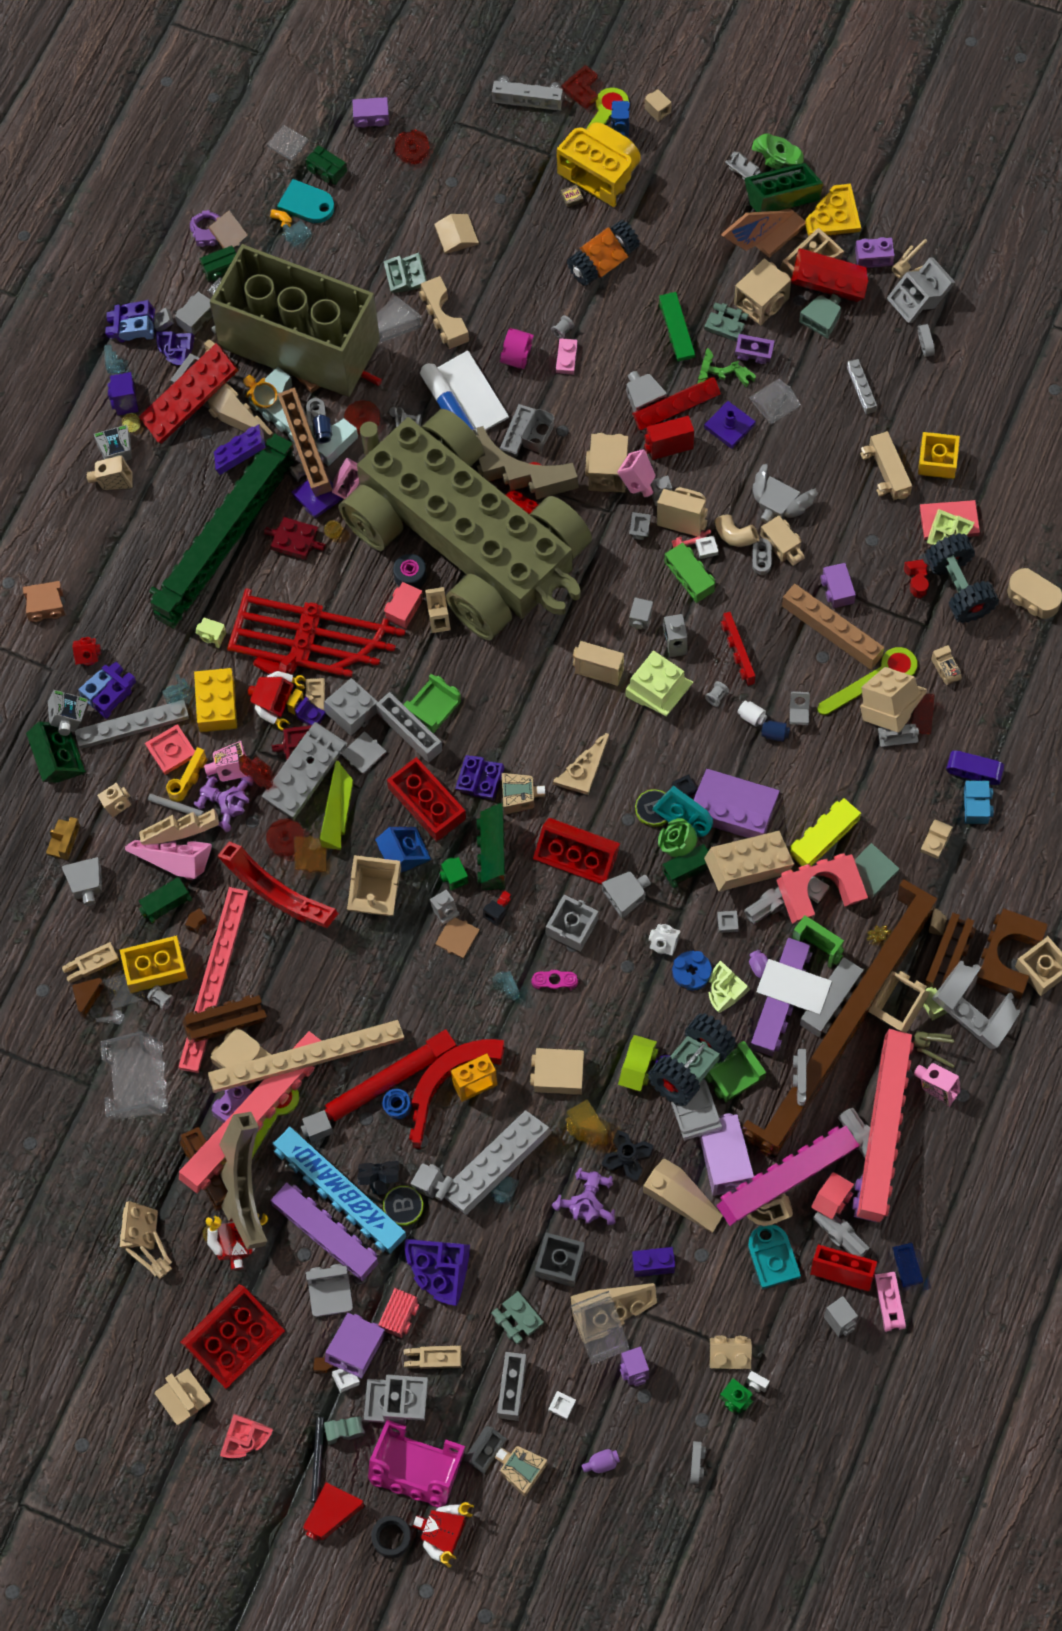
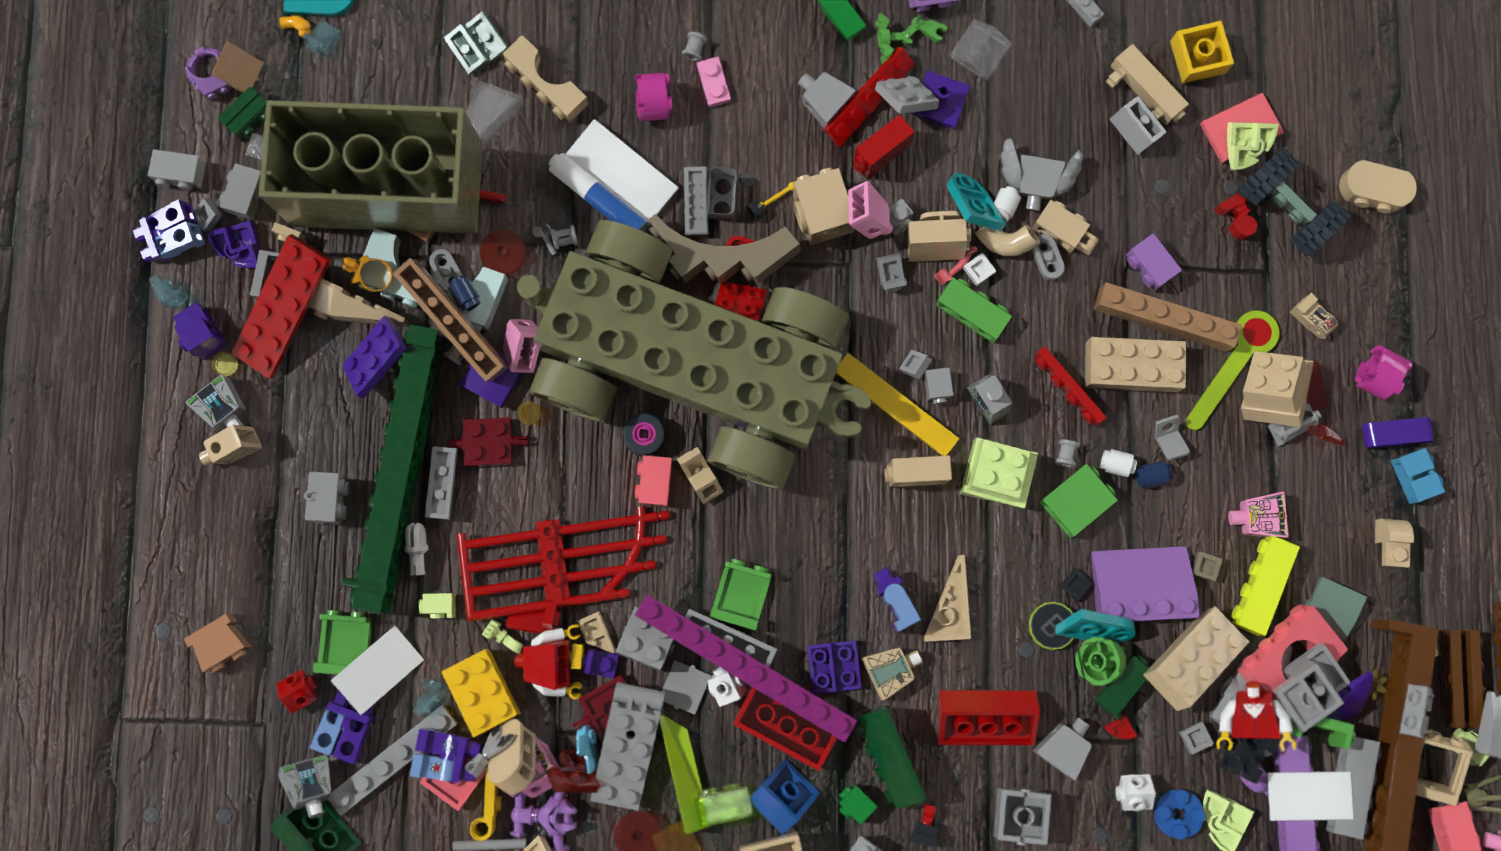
camera: 25 degrees left, 15 degrees up
(132, 634) = (342, 640): none -> bright green panel
(149, 657) = (377, 670): none -> white sticker
(155, 283) = (176, 169): none -> light grey brick
(164, 530) = (327, 498): none -> light grey brick
(170, 728) = (453, 756): none -> dark purple hips
(195, 736) = (492, 746): none -> light grey piece
(212, 588) = (416, 547): none -> white arm
(218, 742) = (515, 765): none -> tan brick
(242, 663) = (493, 630): none -> yellowish green piece
(249, 551) = (441, 483): none -> light grey plate
(276, 756) = (586, 747): none -> medium azure plate
(355, 835) = (723, 805): none -> clear neon green brick
(394, 757) = (726, 687): none -> white brick
(413, 744) = (745, 668): none -> magenta plate
(543, 744) = (896, 599): none -> medium blue hips
(560, 450) = (757, 208): none -> hinge
(605, 619) = (897, 405): none -> yellow tile
(630, 593) = (915, 364): none -> light grey plate
(674, 897) = (1121, 729): none -> red tile
(702, 408) = (907, 95): none -> light grey plate
(710, 726) = (1079, 500): none -> bright green panel
(720, 496) = (974, 202): none -> teal tile
(745, 509) = (1007, 202): none -> white brick
(758, 938) = (1246, 756): none -> black plant
(771, 909) = (1255, 716): none -> torso
(787, 807) = (1206, 566): none -> dark tan plate
(794, 650) = (1135, 364): none -> tan piece
(823, 903) = (1311, 687): none -> light grey bracket
(845, 785) = (1262, 516): none -> bright pink torso
(854, 931) = (1353, 697): none -> dark purple brick
(868, 488) = (1137, 125): none -> light grey brick
(889, 949) = (1417, 702): none -> light grey hinge
(920, 750) = (1326, 434): none -> clear red bar
(978, 719) = (1383, 373): none -> dark pink brick

